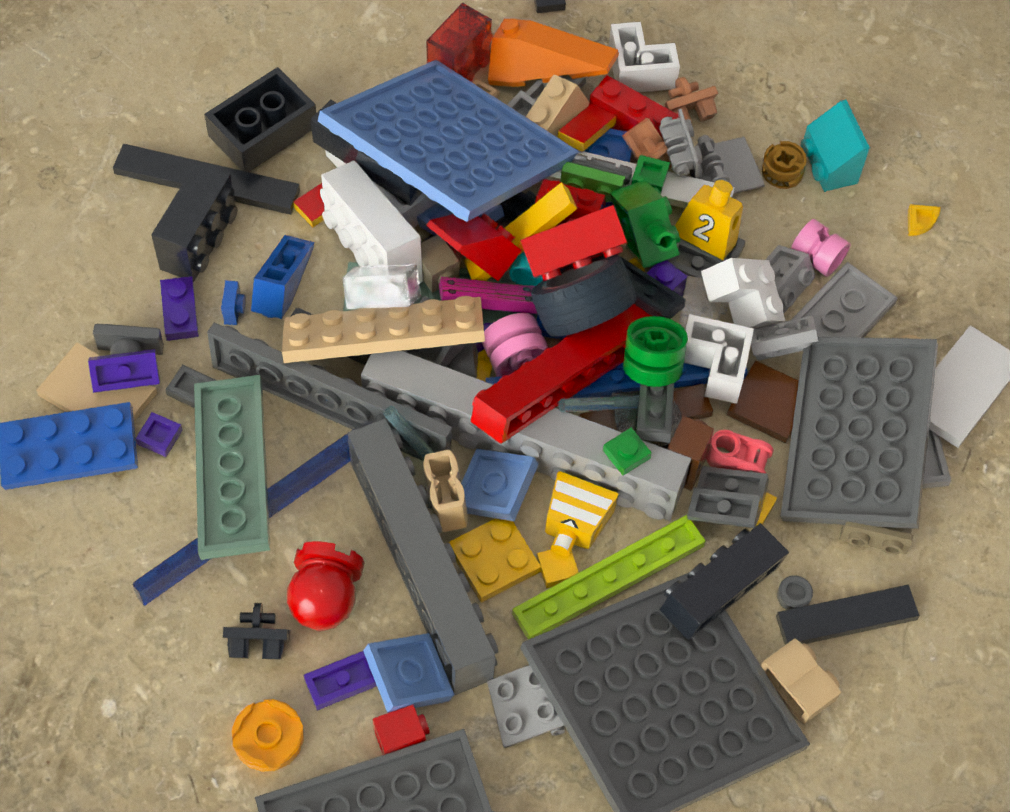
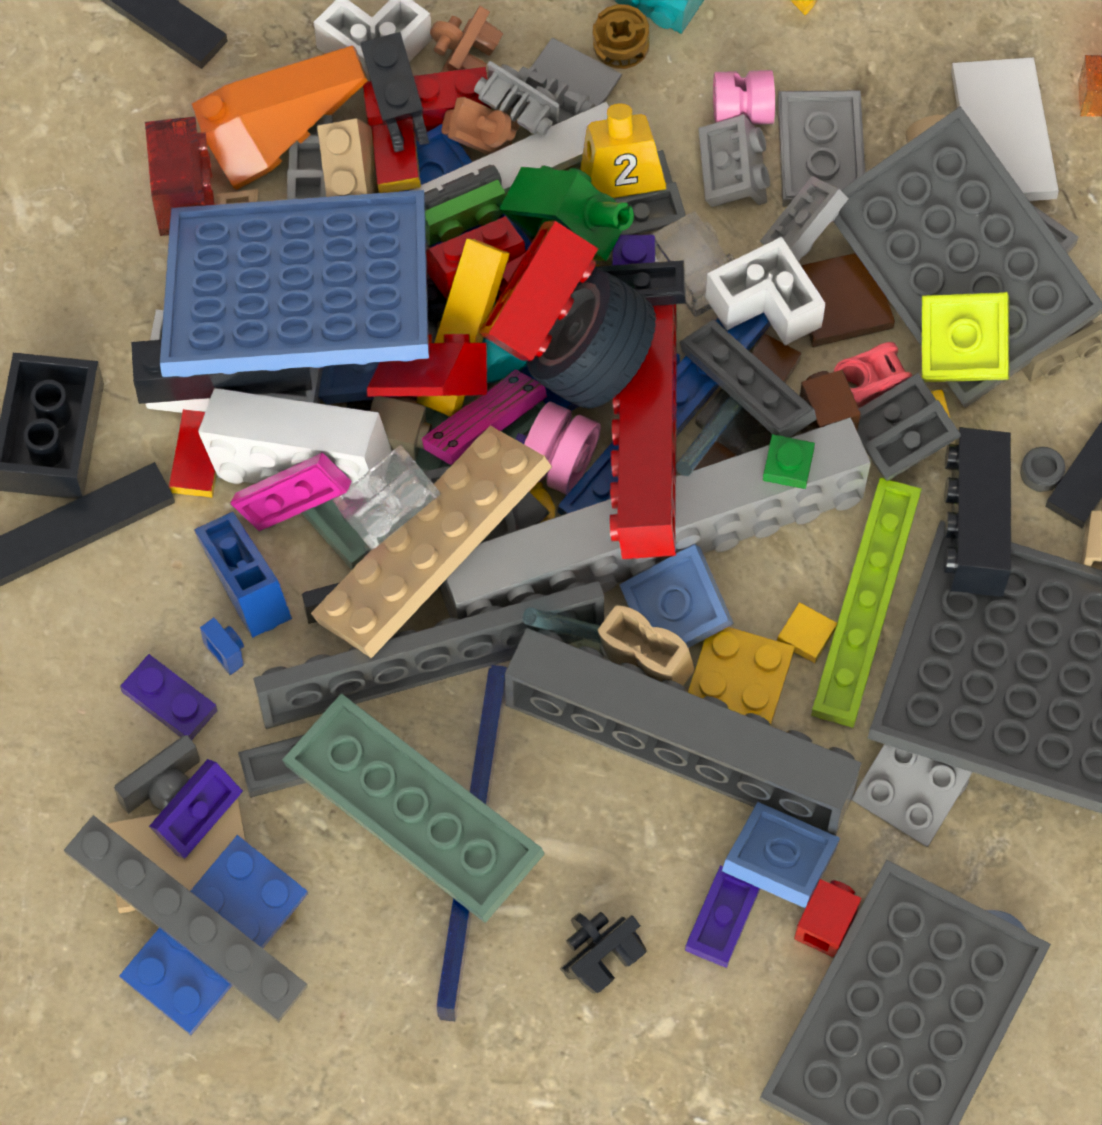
camera: 40 degrees left, 5 degrees up
(55, 422) = (186, 918): none -> dark grey plate
(159, 434) = (293, 842): dark purple plate -> none
(195, 222) = (104, 591): black brick -> none
(267, 735) = (705, 1032): light orange tile -> none
(323, 587) = (625, 849): red tile -> none
(342, 248) = (291, 492): none -> dark pink tile
(577, 513) = (777, 564): yellow torso -> none
(617, 87) = (394, 86): none -> black hinge
(651, 170) = (515, 152): green plate -> none
(655, 351) = (712, 338): green wheel -> none
(748, 289) = (731, 204): white brick -> none
(816, 476) = (965, 337): none -> neon yellow tile

